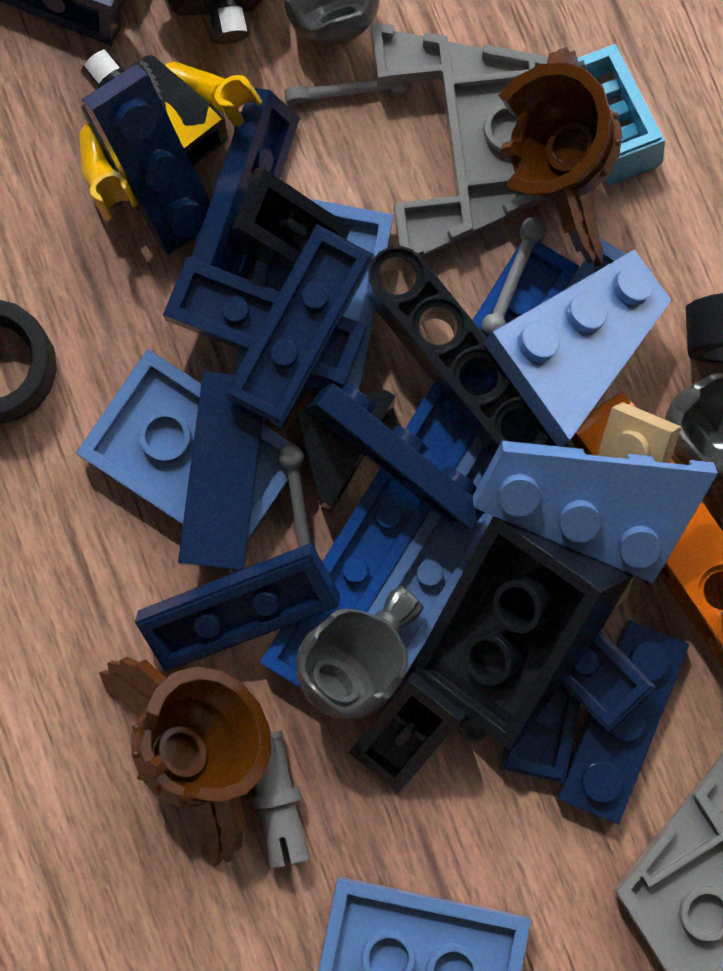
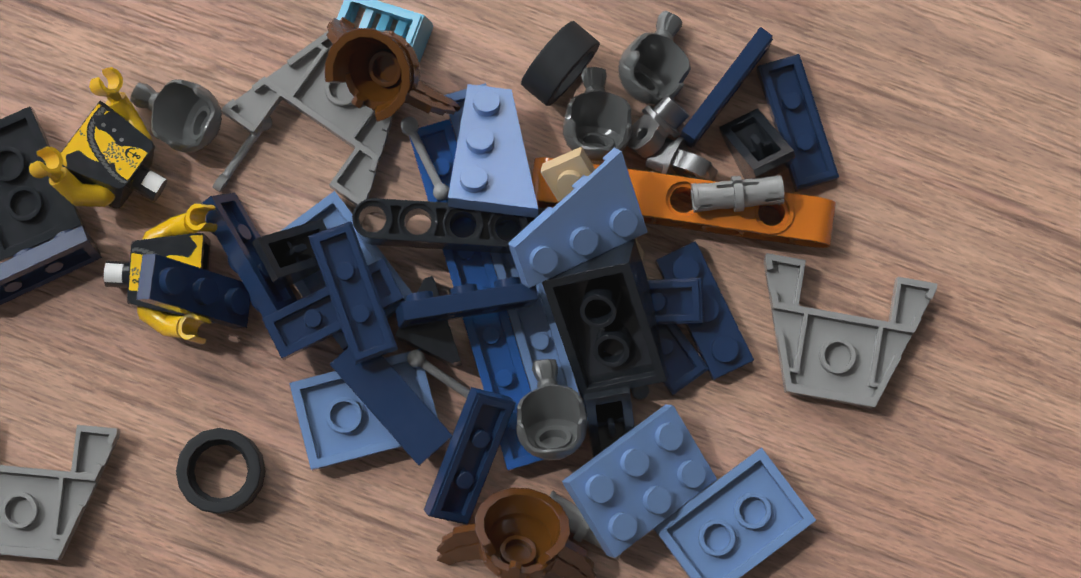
camera: 45 degrees left, 0 degrees up
(374, 817) = (639, 480): none -> medium blue plate

